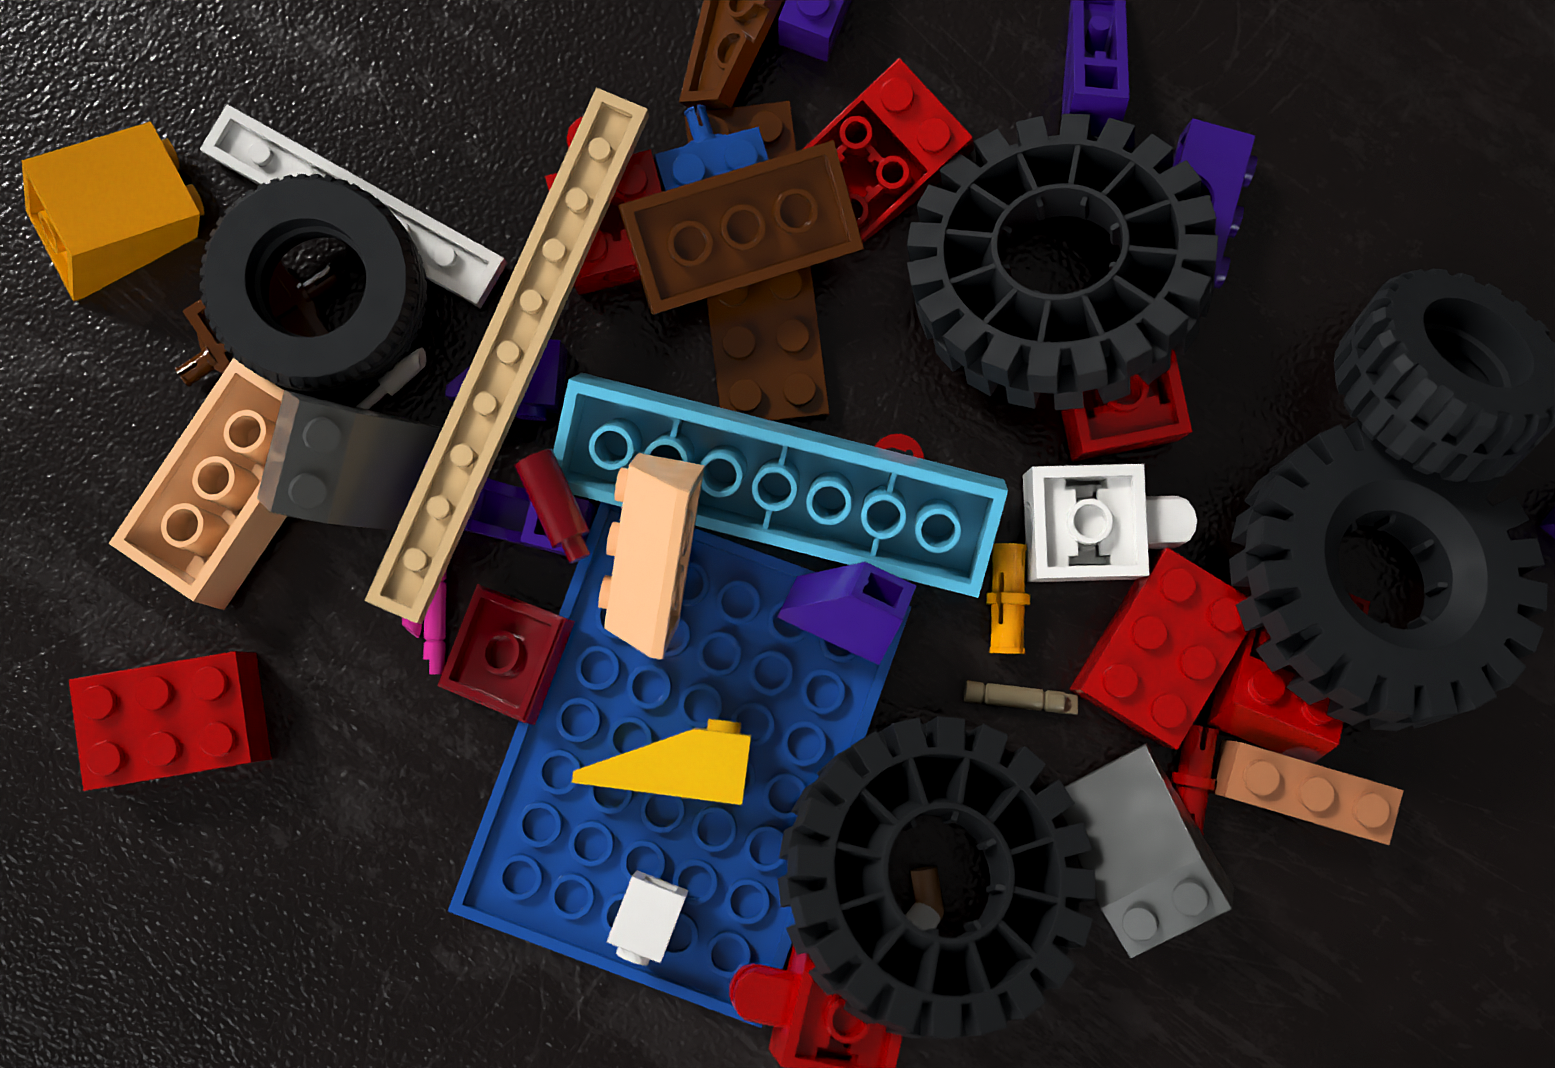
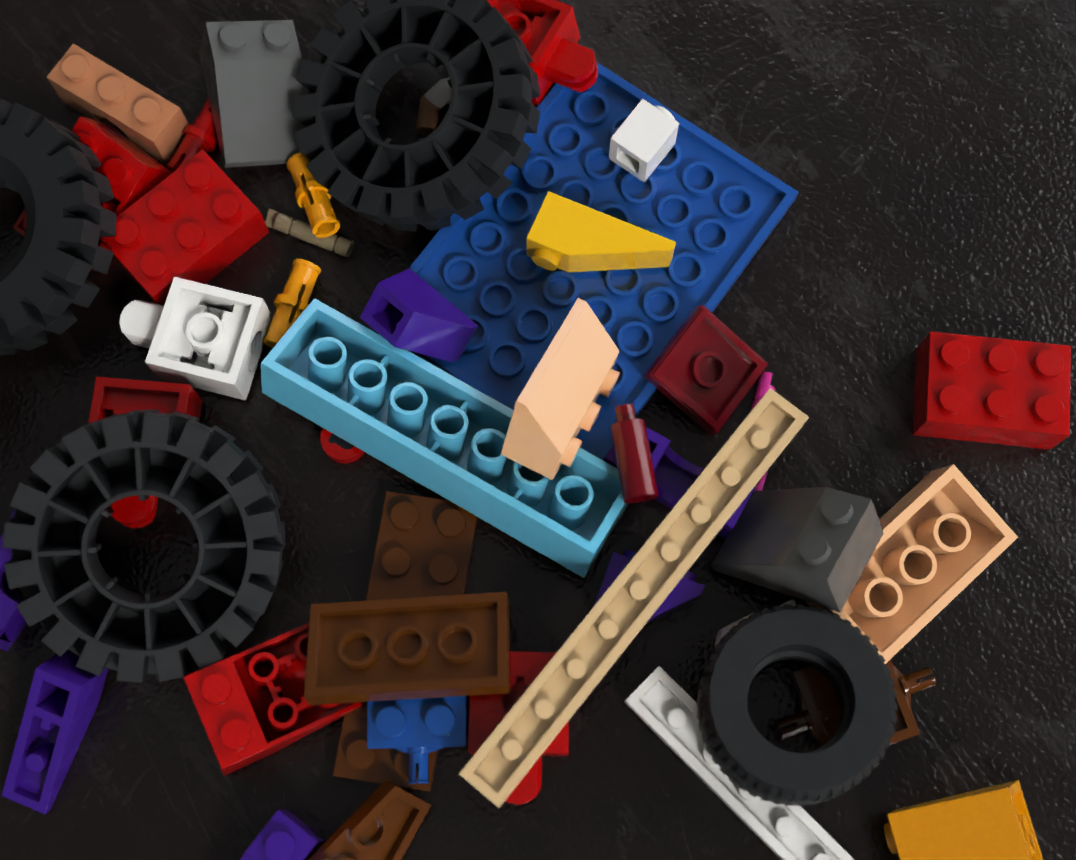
camera: 165 degrees left, 10 degrees down
(1023, 731) = (312, 198): none -> light orange pin

